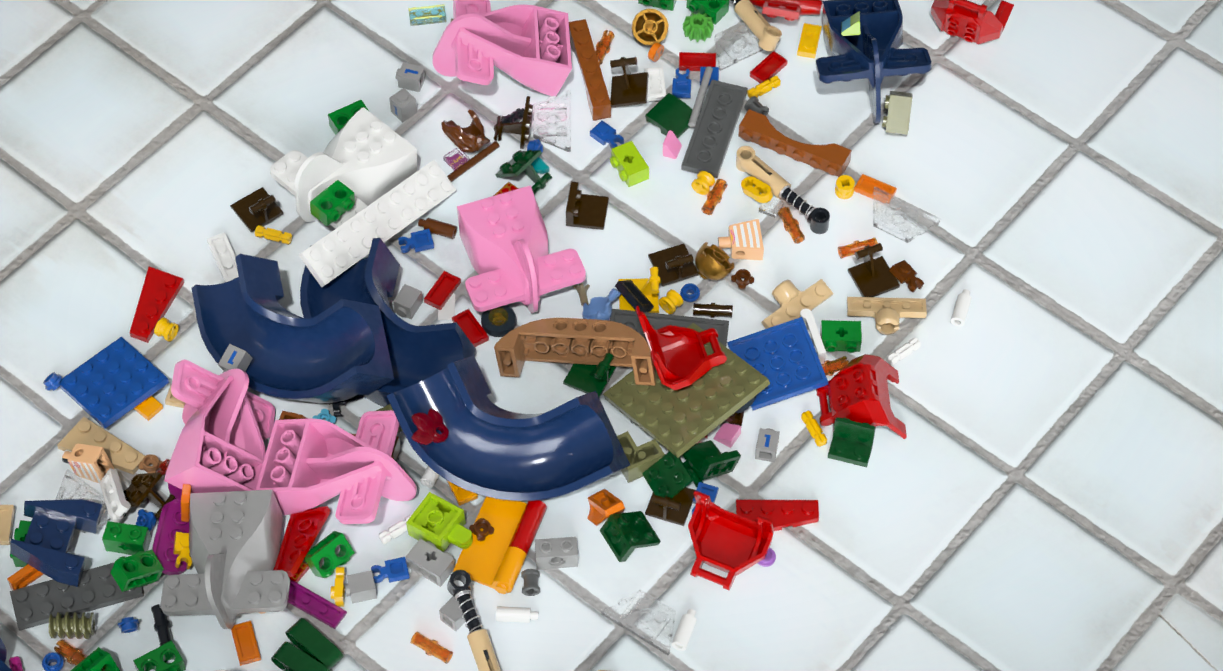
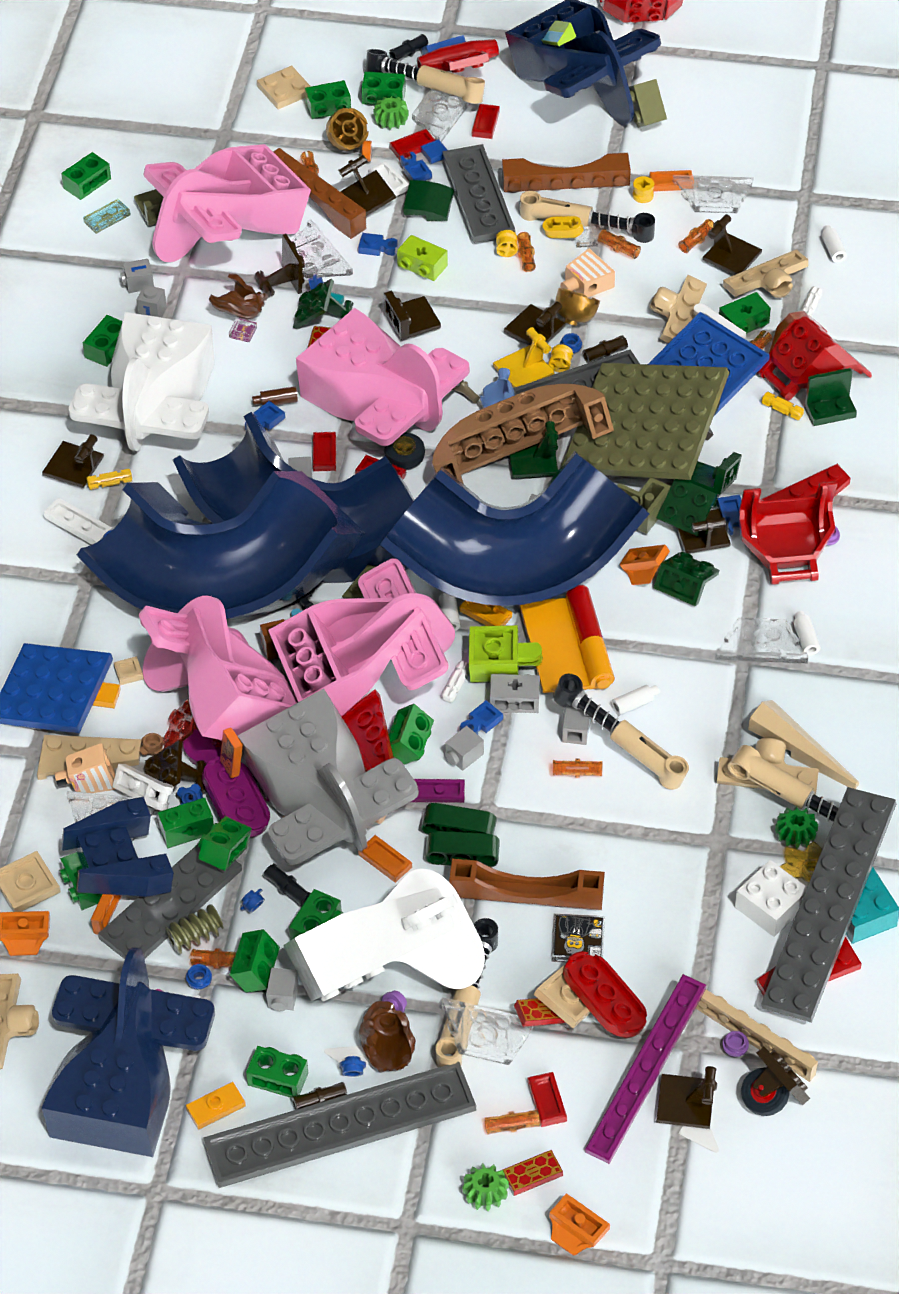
camera: 30 degrees left, 5 degrees down
(154, 301) = (32, 597): red wing -> none
(166, 329) = (68, 613): yellow wheel -> none
(181, 548) = (255, 798): yellow plate -> none
(234, 359) = (178, 595): light grey brick -> none
(332, 203) = (167, 409): green brick -> none
(338, 590) = (443, 762): yellow plate -> none
(380, 219) = (221, 412): white plate -> none
(427, 426) = (440, 557): dark red plate -> none
(448, 310) = (343, 467): white sticker -> none
(473, 161) = (259, 329): reddish brown bar -> none
(487, 529) = (544, 637): reddish brown plate -> none
(515, 116) = (272, 266): black piece -> none
(530, 582) = (626, 663): dark grey bush -> none
(556, 553) = (631, 625): light grey brick -> none
(634, 295) = (524, 367): black tile -> none
(671, 146) = (448, 226): bright pink slope -> none
(680, 352) = (628, 387): red piece -> none
(700, 97) = (444, 170): light grey bar -> none
(728, 434) = (710, 448): bright pink slope -> none
(742, 274) = (611, 309): reddish brown plate -> none
(754, 105) = (499, 155): dark grey bush -> none
(764, 87) = (496, 138): yellow axle -> none
(767, 445) = (753, 438): light grey brick -> none
(809, 40) = (505, 81): yellow plate -> none
(905, 273) = (759, 237): reddish brown plate -> none

